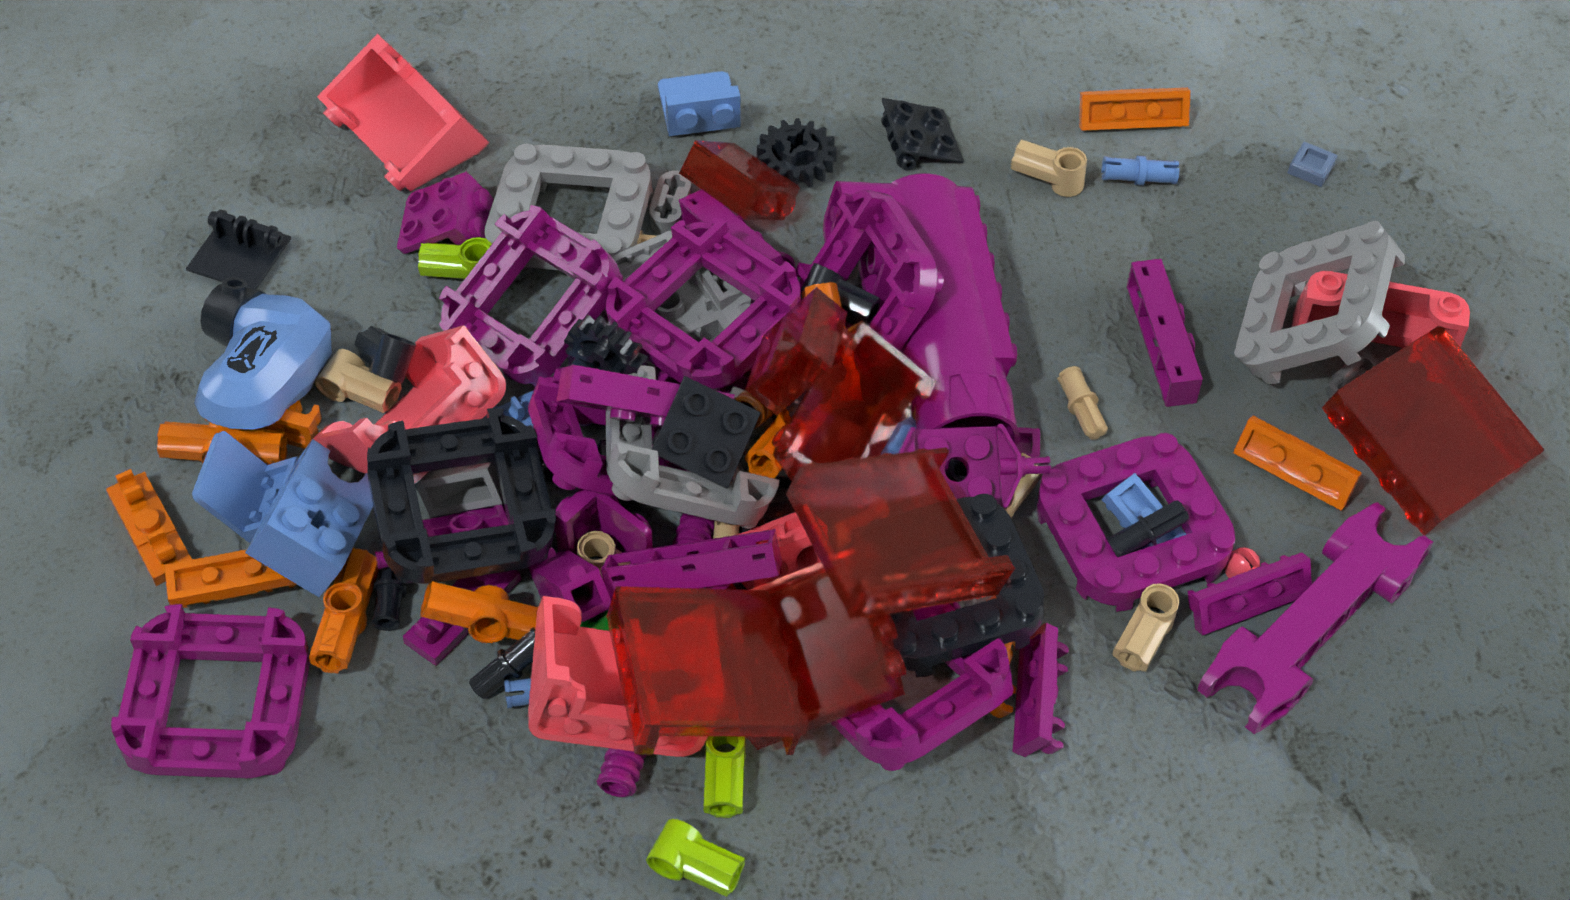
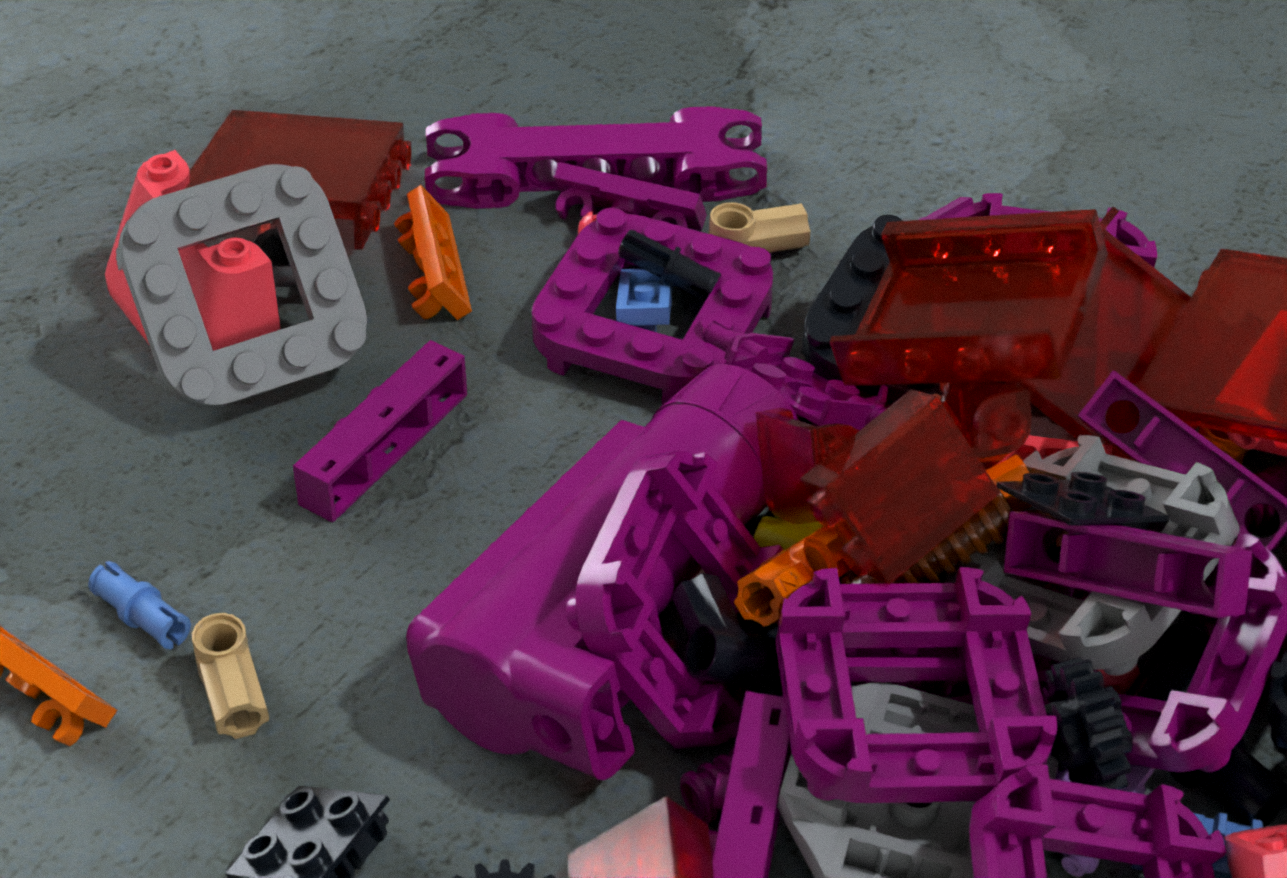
camera: 135 degrees left, 10 degrees down
(1082, 402) = (552, 435): tan axle -> none

